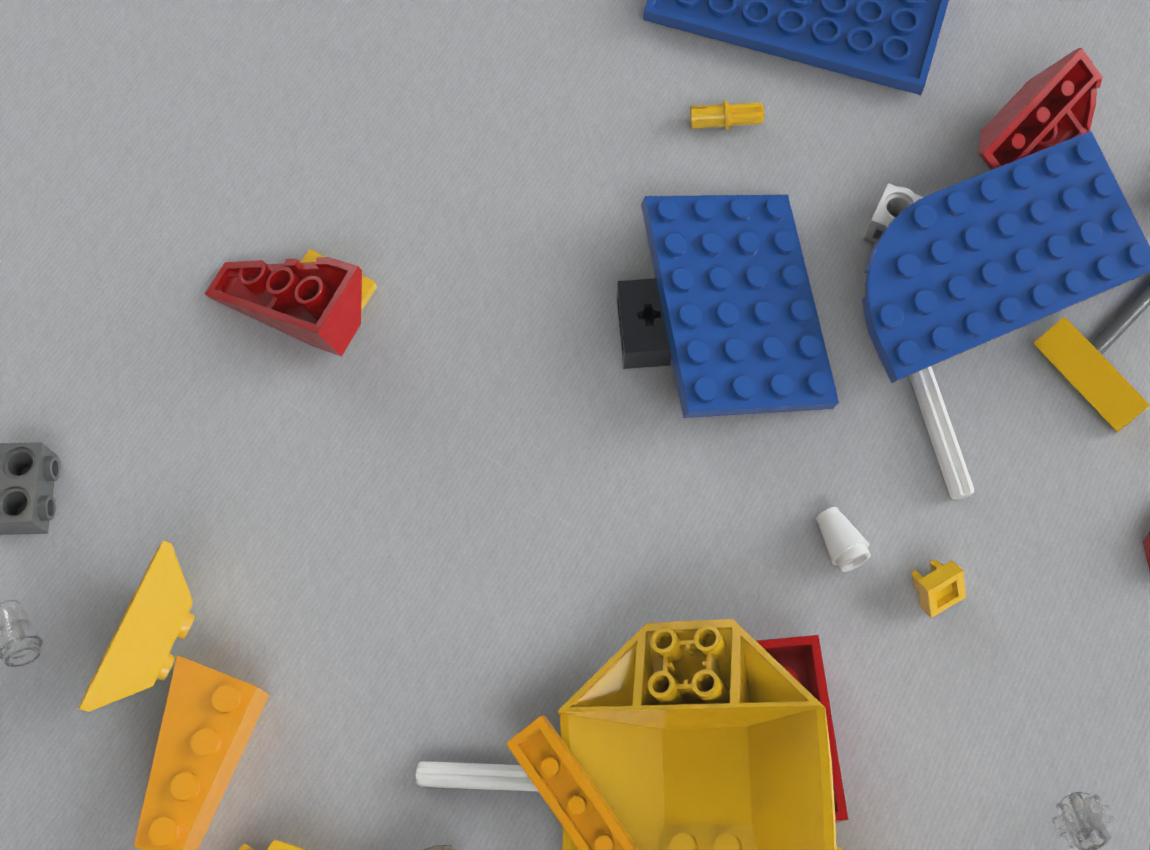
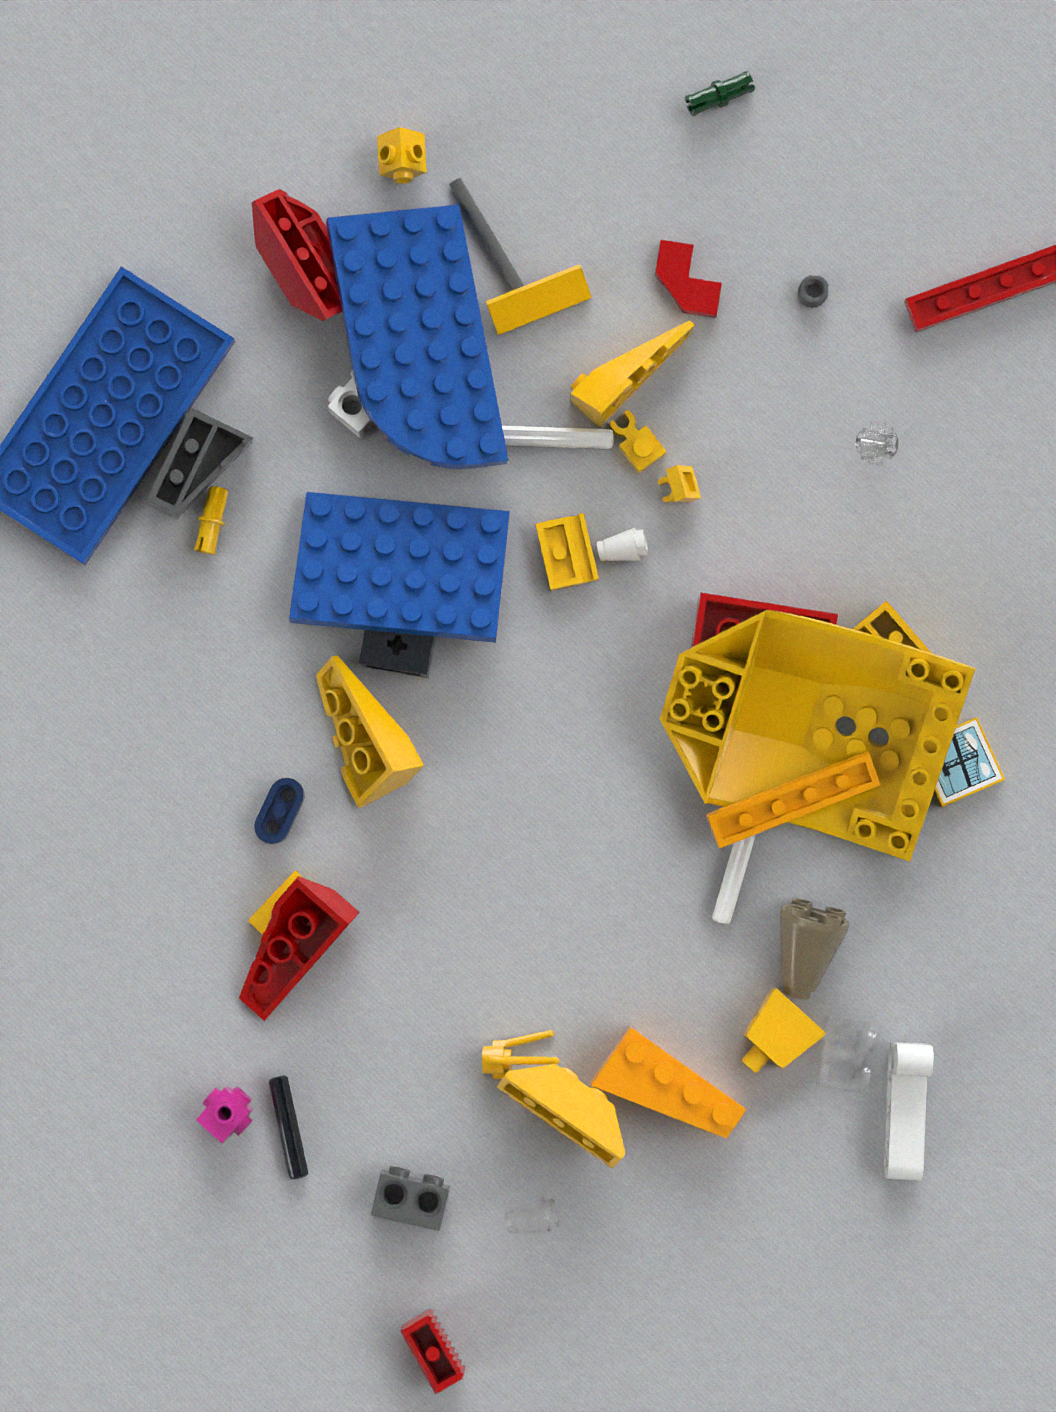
camera: 75 degrees left, 15 degrees up
(89, 344) = (288, 1127): none -> black axle
(91, 272) = (216, 1121): none -> dark pink brick
(198, 549) = (498, 1059): none -> yellow plant
(437, 248) = (276, 809): none -> dark blue plate
(531, 329) = (372, 744): none -> yellow wedge
(783, 76) = (195, 461): none -> dark grey wedge
(813, 476) = (566, 552): none -> yellow plate
(966, 529) = (639, 446): none -> yellow plate
(1039, 485) = (614, 382): none -> yellow wedge

